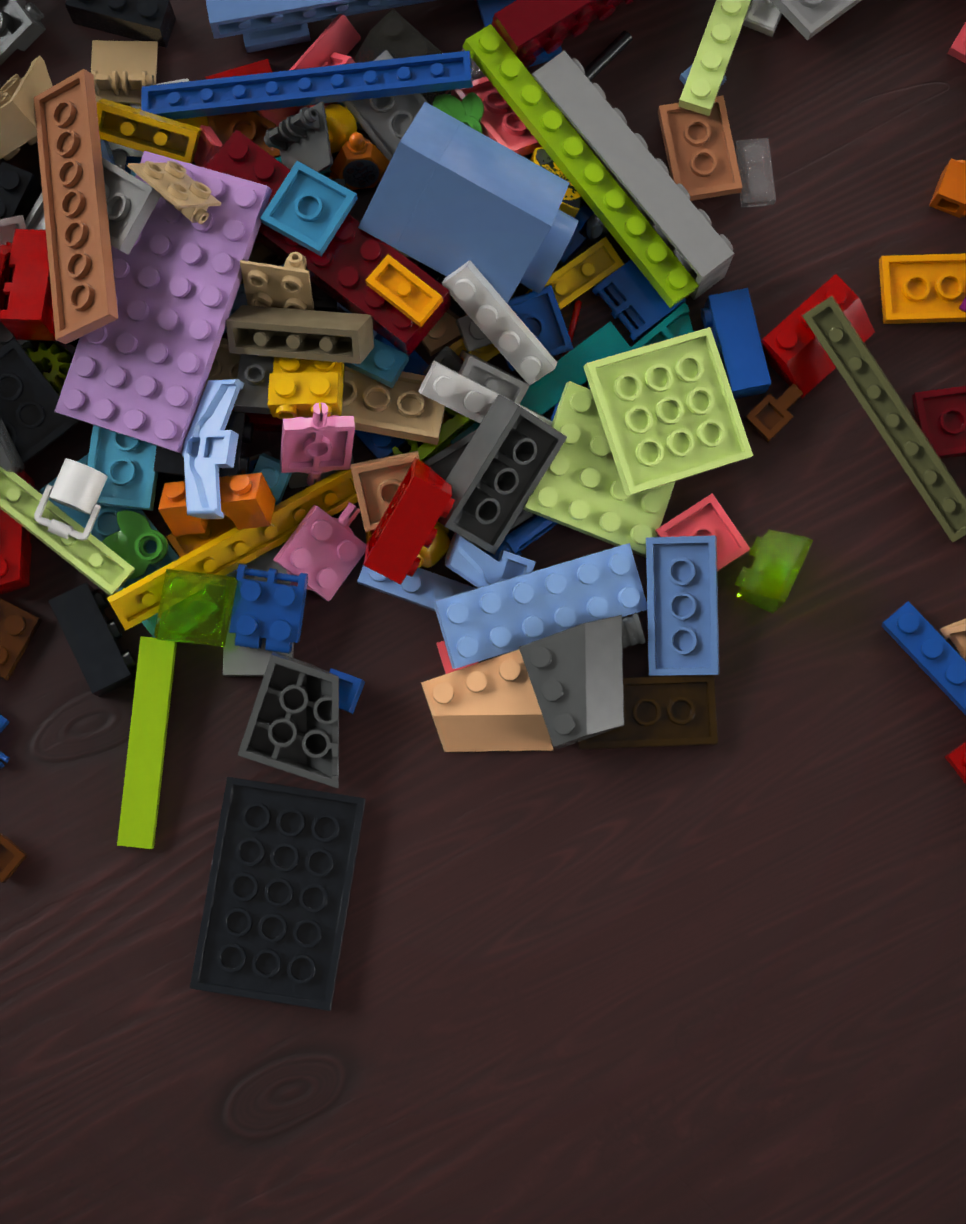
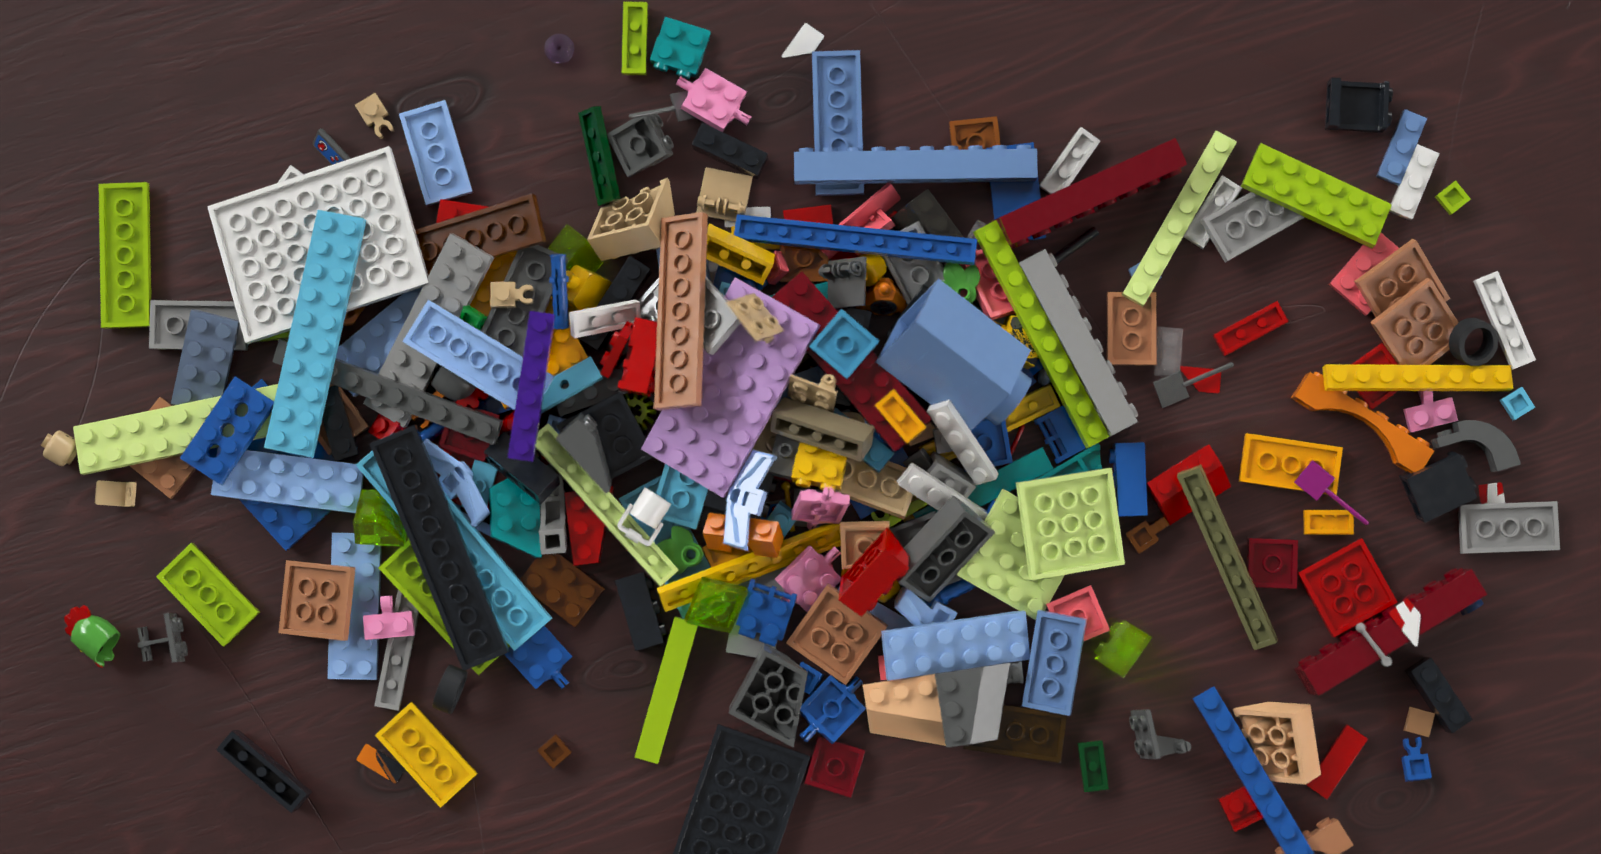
camera: 15 degrees right, 5 degrees up
(270, 437) = (786, 486): none -> yellow hinge
(372, 622) = (836, 635): none -> nougat plate
(383, 727) = (831, 709): none -> blue plate
(402, 807) = (834, 767): none -> dark red plate
(763, 740) = (1093, 766): none -> dark green plate
(770, 217) = (1173, 388): none -> dark grey piece
(808, 200) = (1209, 384): none -> red sticker
(831, 686) = (1149, 744): none -> dark grey plate
(857, 124) = (1250, 328): none -> red tile

